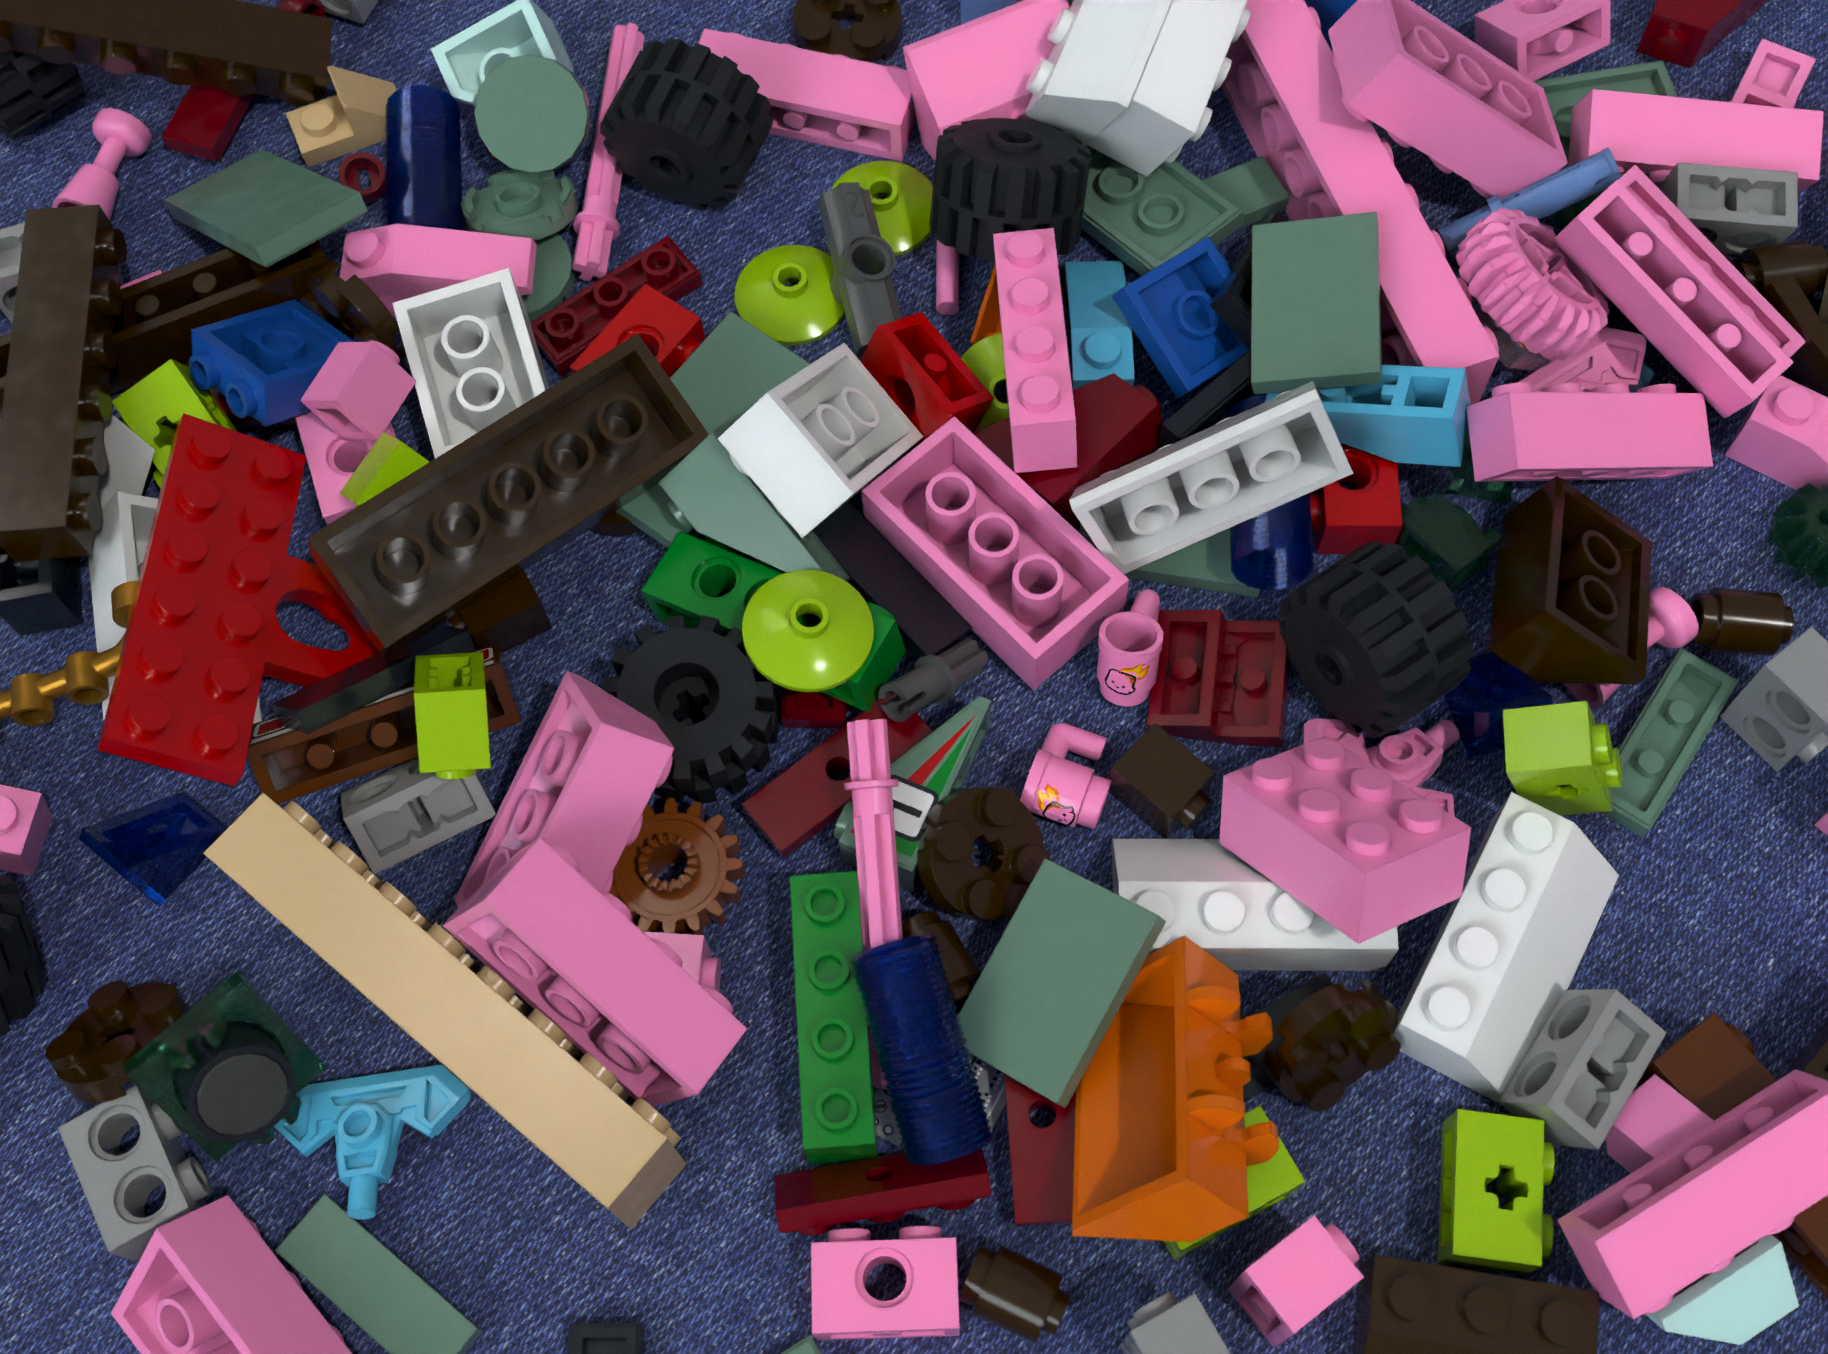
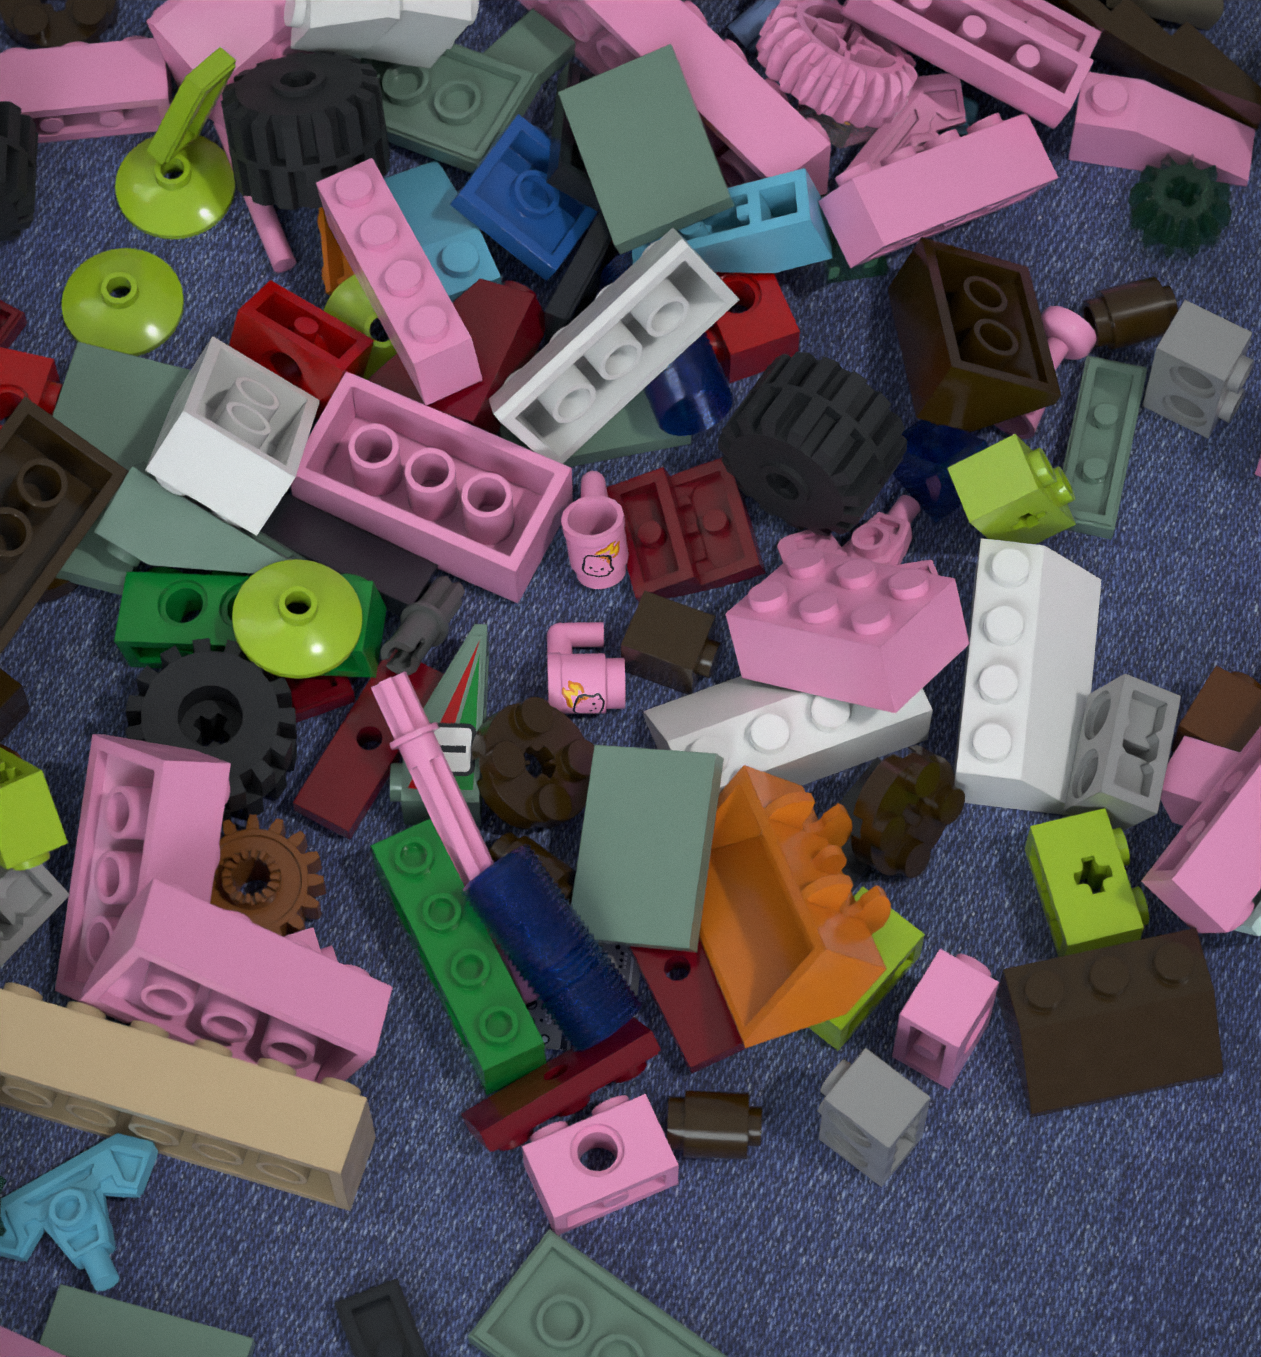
camera: 25 degrees left, 0 degrees up
(856, 246) = (173, 236): dark grey piece -> none
(914, 134) = (192, 106): none -> lime tile
(1446, 539) = (843, 330): clear green brick -> none

